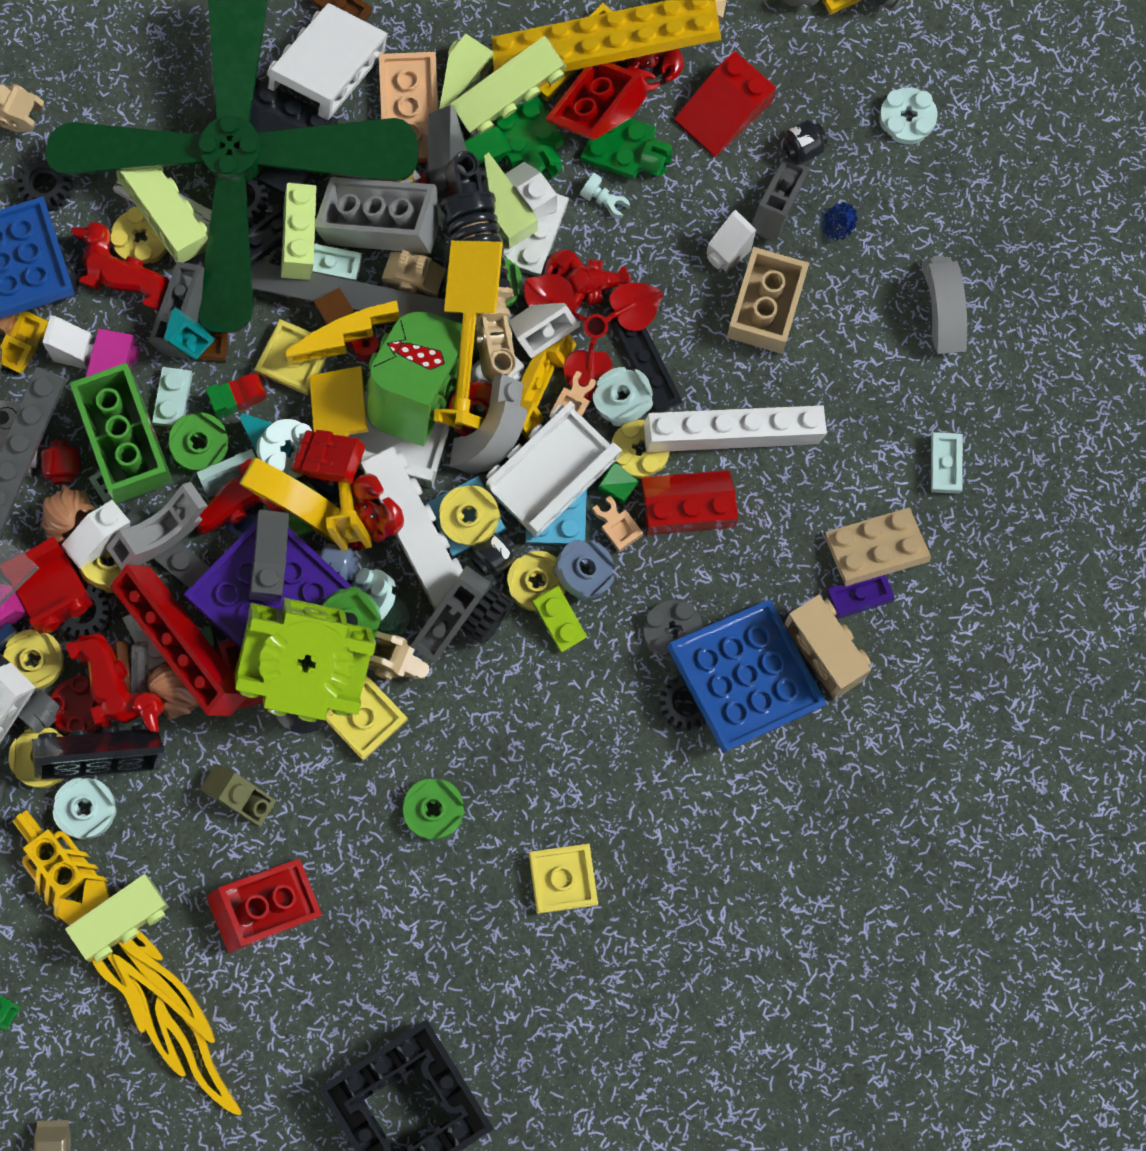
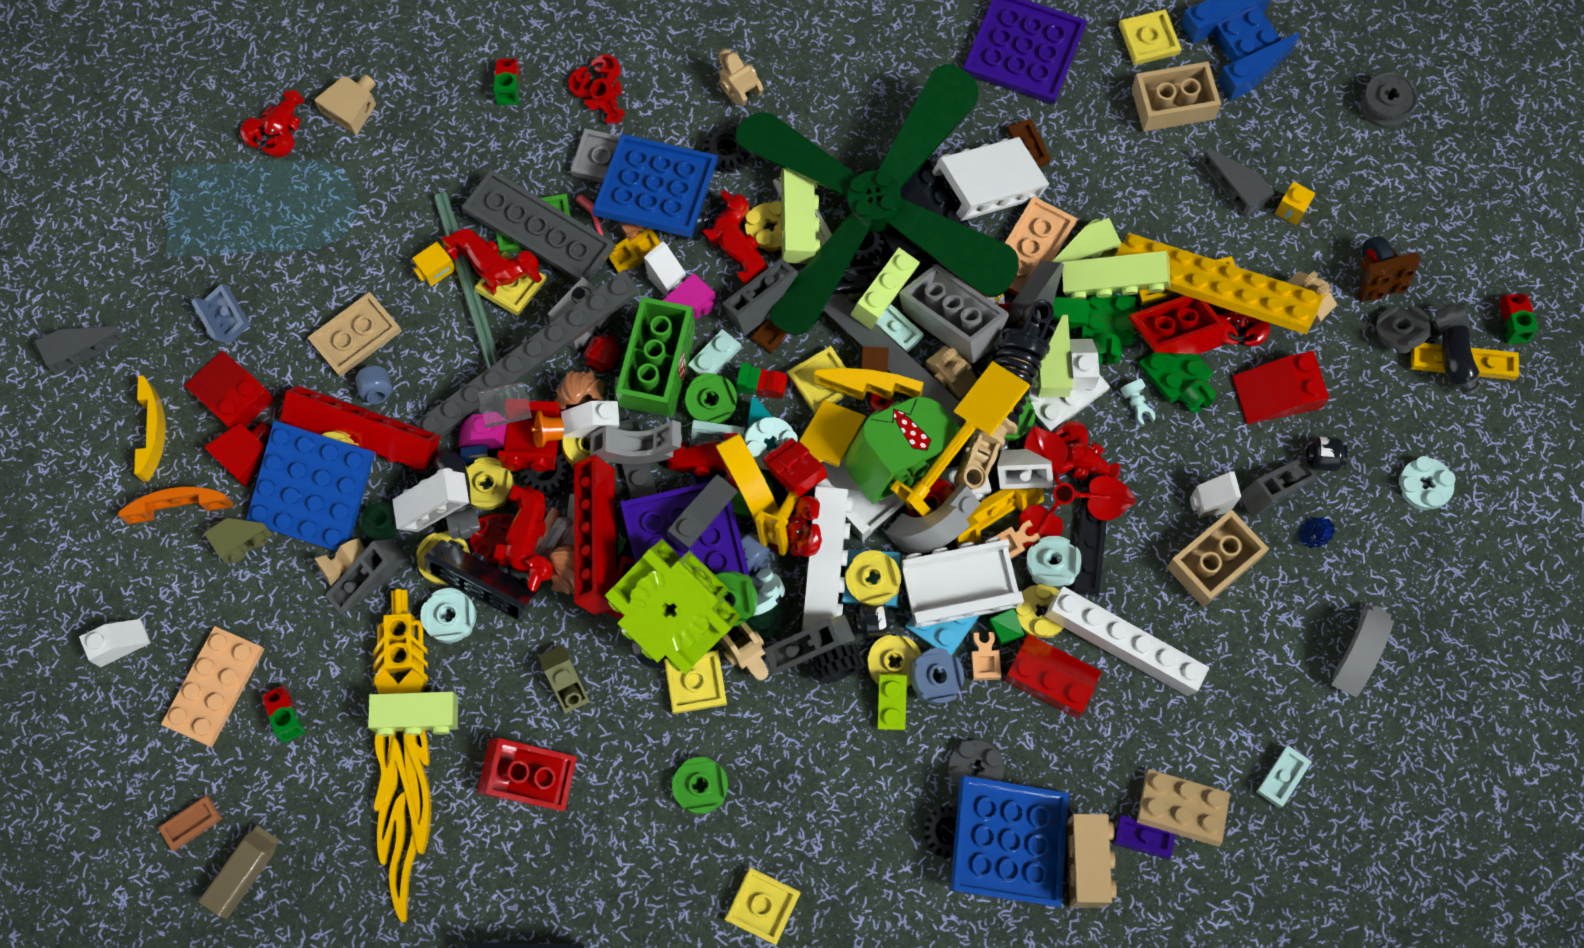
camera: 40 degrees right, 5 degrees down
(60, 570) = (546, 429): none -> orange piece
(187, 334) = (753, 314): teal slope -> none

